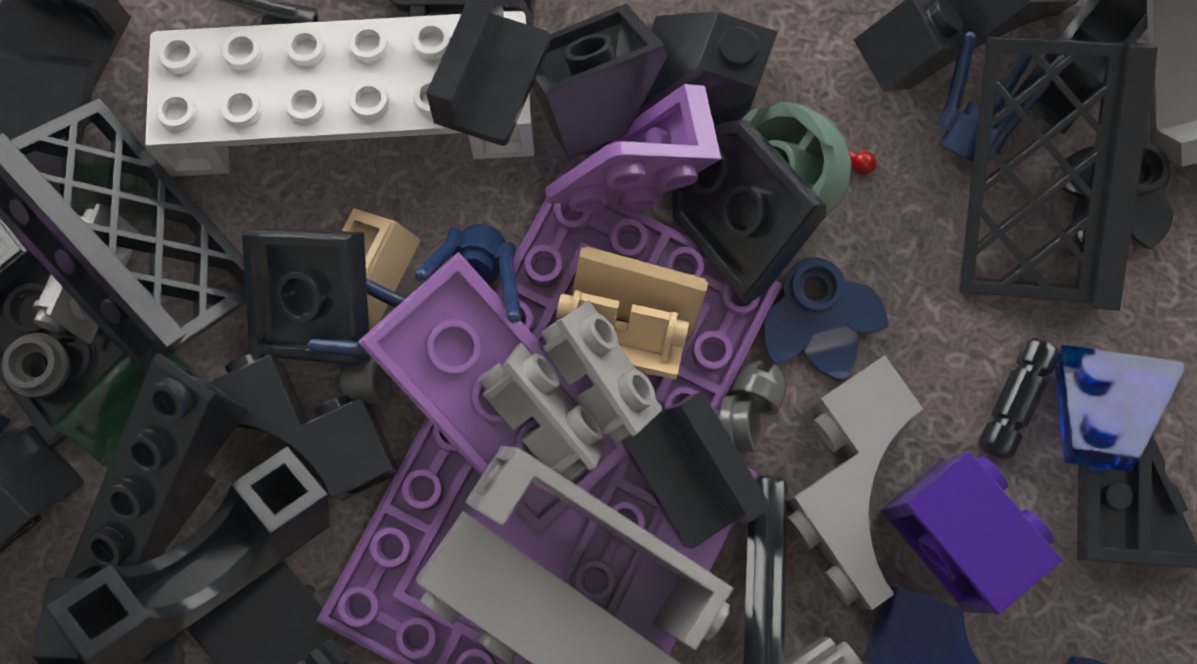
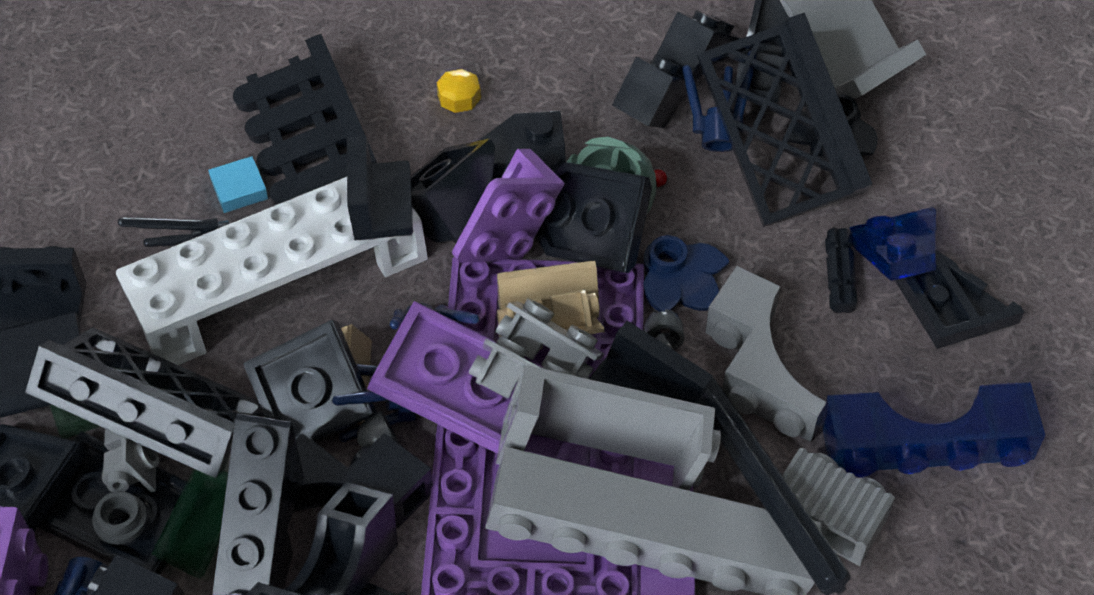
camera: 25 degrees left, 25 degrees down
(973, 533) = (852, 341): dark purple brick -> none

